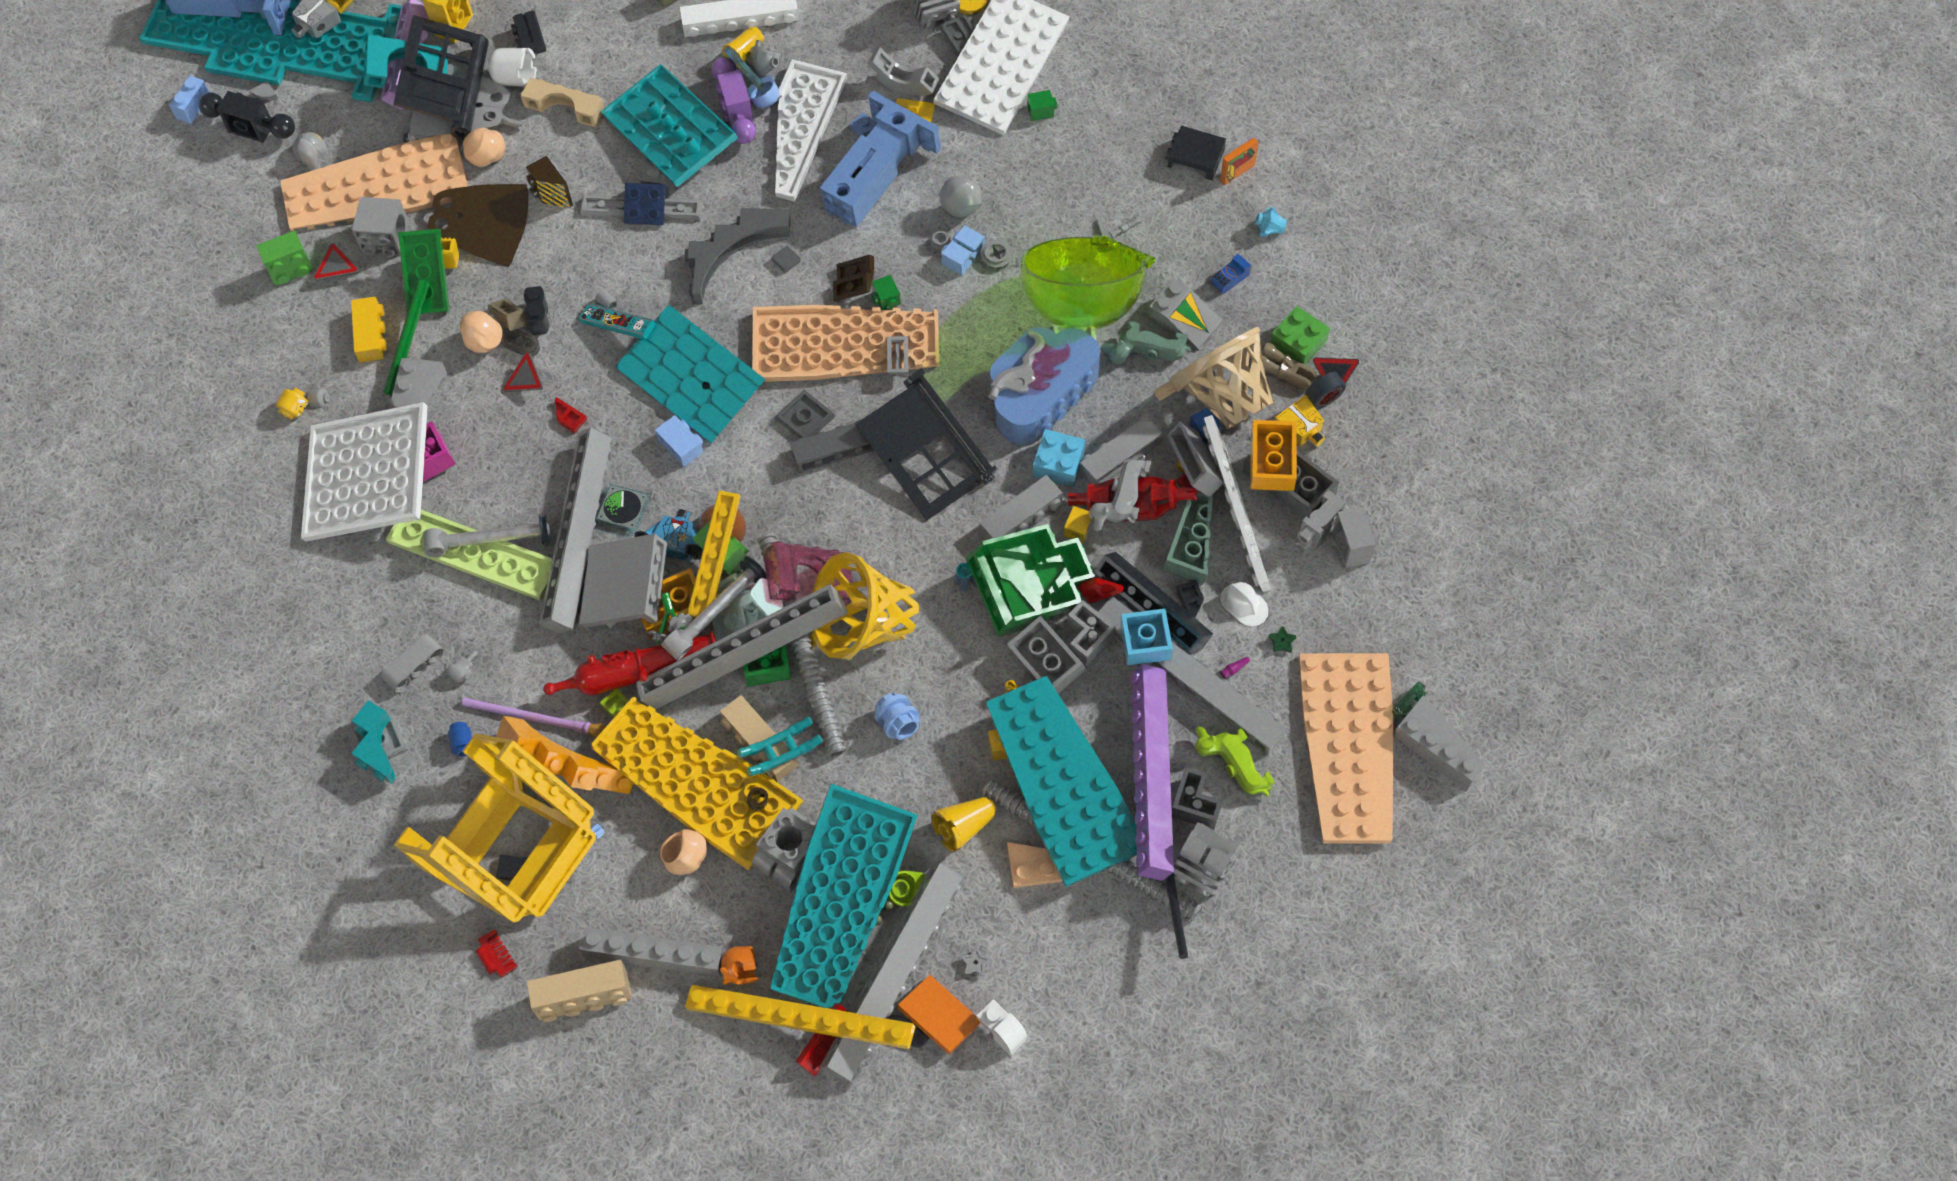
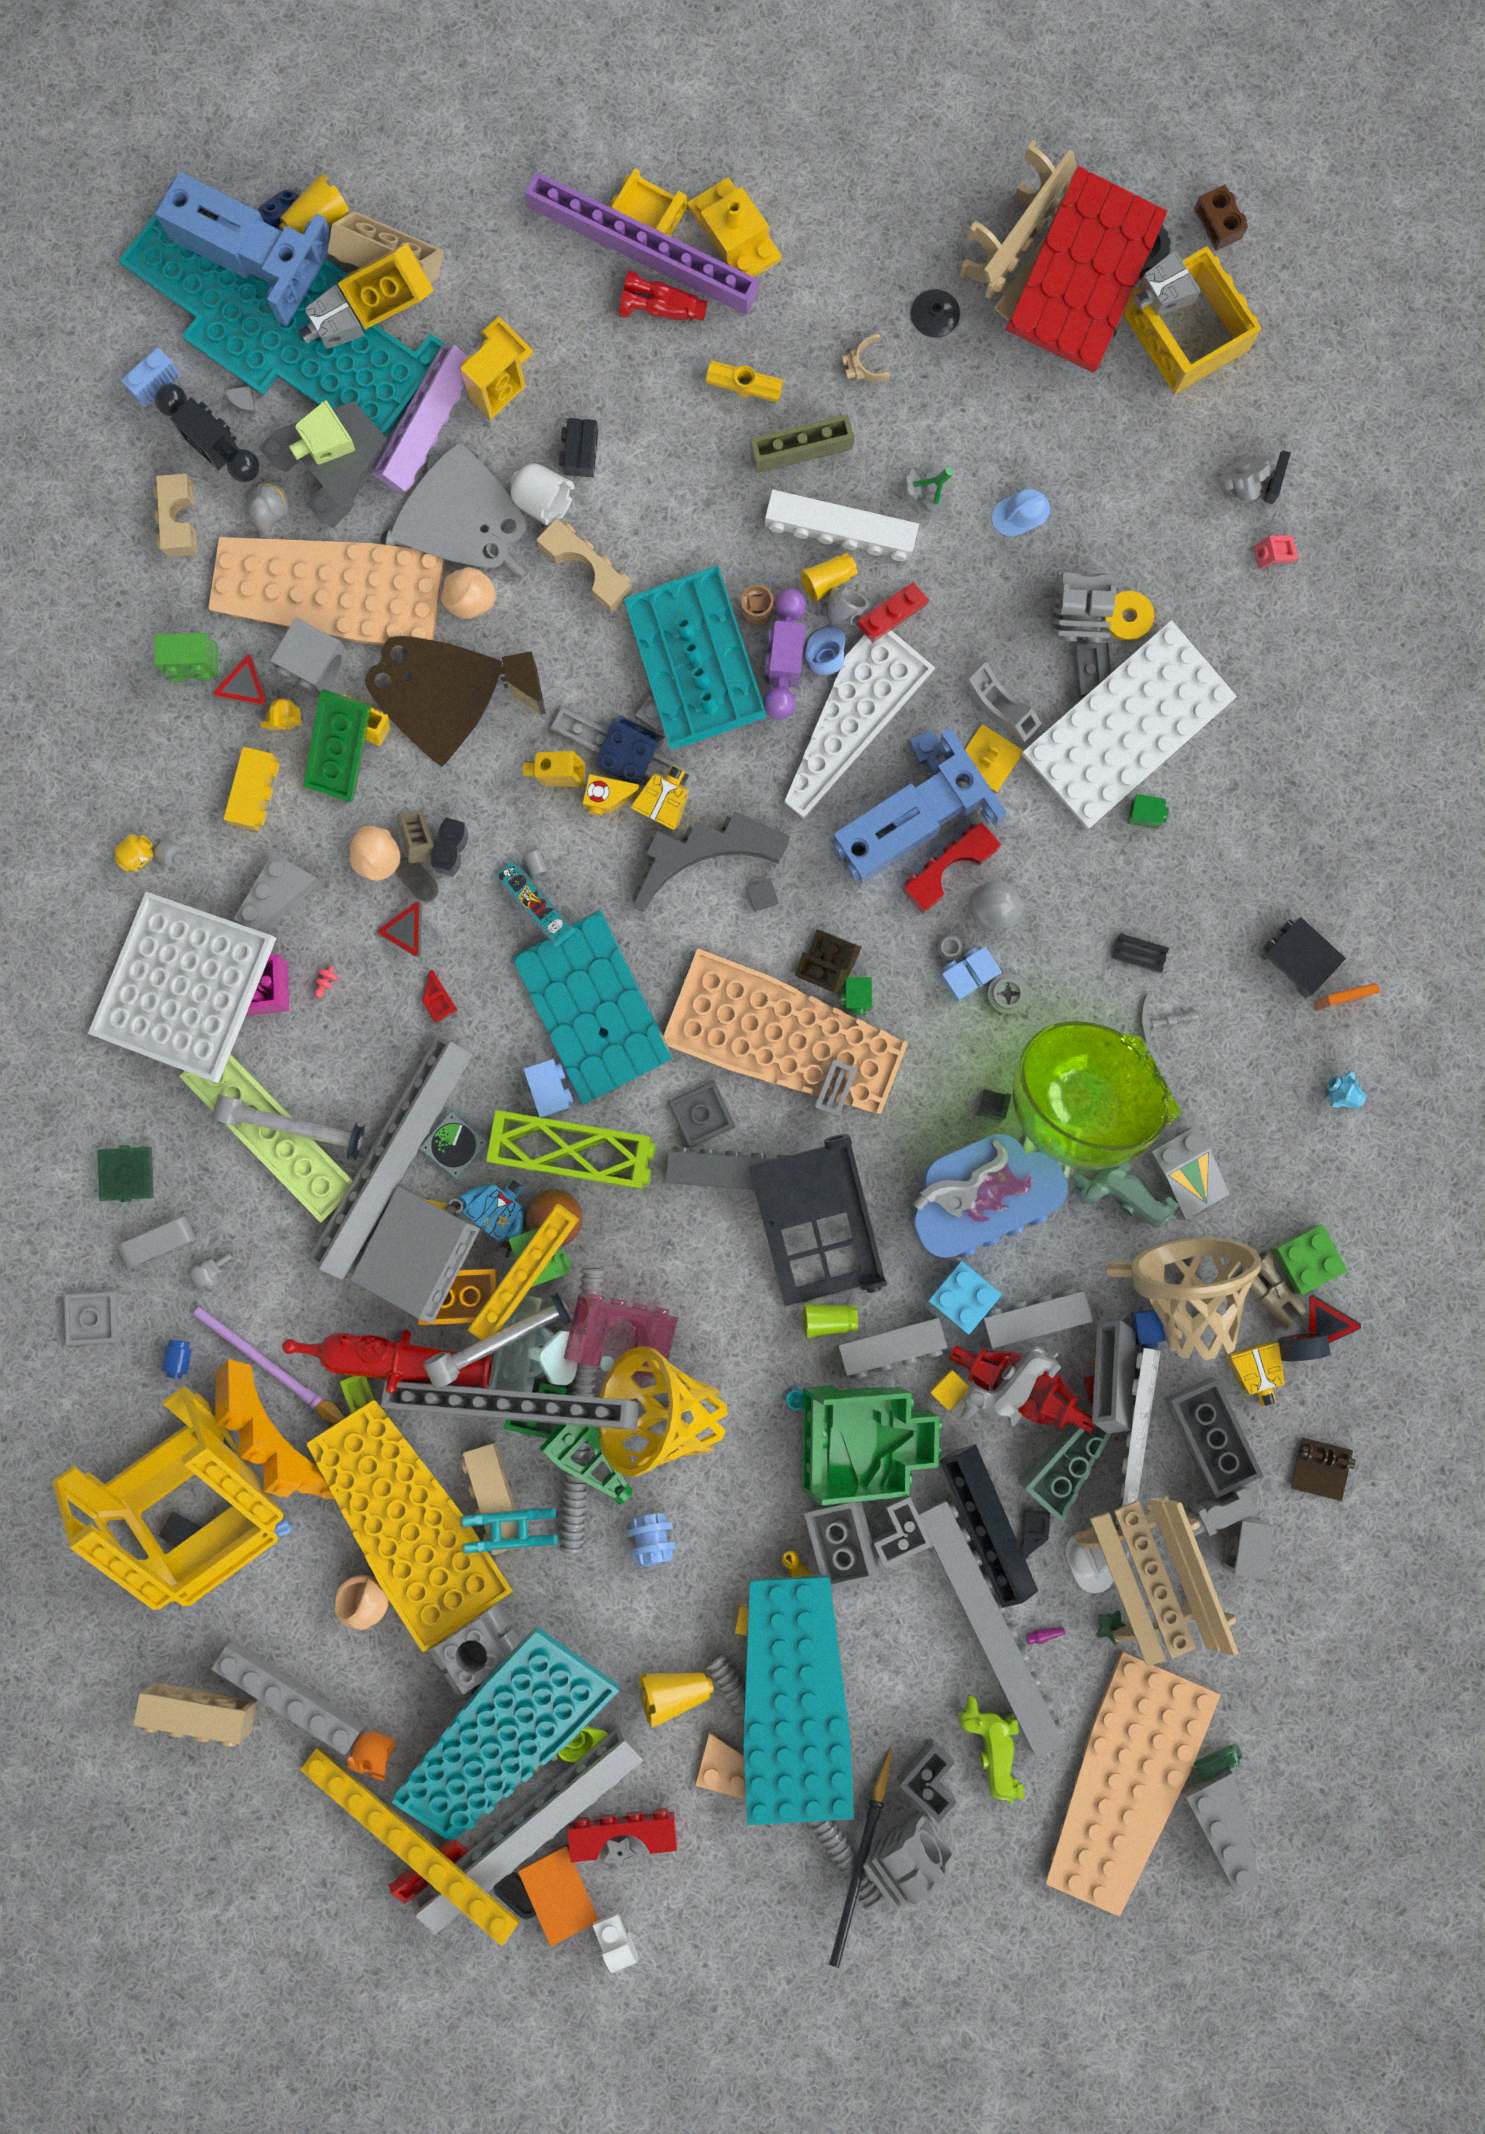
camera: 20 degrees right, 20 degrees up
(248, 189) = (173, 494): none -> tan arch
(336, 81) = (321, 436): none -> yellowish green torso
(344, 94) = (339, 476): none -> dark grey wedge
(368, 624) = (125, 1174): none -> clear green plate
(370, 752) = (75, 1340): teal arch -> none
(373, 274) = (282, 715): none -> yellow piece
(382, 50) = (447, 445): teal arch -> none
(407, 333) = (291, 819): green axle -> none
(437, 92) = (434, 500): black door -> none
(476, 433) = (323, 983): none -> coral hair
(491, 959) = (121, 1623): red piece -> none
(596, 230) = (556, 769): none -> yellow torso
(643, 235) = (607, 794): none -> yellow slope
(676, 622) = (455, 1338): plant -> none
(684, 221) = (663, 798): none -> yellow torso
(700, 80) = (756, 605): none -> medium nougat wheel
(719, 457) = (503, 1137): none -> lime piece
(744, 68) = (813, 616): clear light blue tile -> none
(753, 803) = (469, 1572): dark brown bush -> none
(795, 666) = (566, 1441): none -> green plate
(800, 51) = (892, 612): none -> red plate
(927, 171) = (974, 847): none -> red arch
(964, 512) = (828, 1319): none -> lime plant
(996, 930) = (654, 1830): none -> red arch
(1020, 325) = (994, 1105): none -> black panel
(1079, 192) = (1161, 958): none -> black tile
(1099, 589) = (937, 1486): red tile -> none
(1146, 637) = (959, 1579): medium azure brick -> none
(1152, 773) = (895, 1735): medium lavender brick -> none
(1231, 274) = (1267, 1140): blue leg -> none
(1273, 455) = (1203, 1421): light orange brick -> none
(1312, 547) = (1171, 1621): none -> tan piece
(1383, 471) = (1322, 1469): none -> dark brown hinge

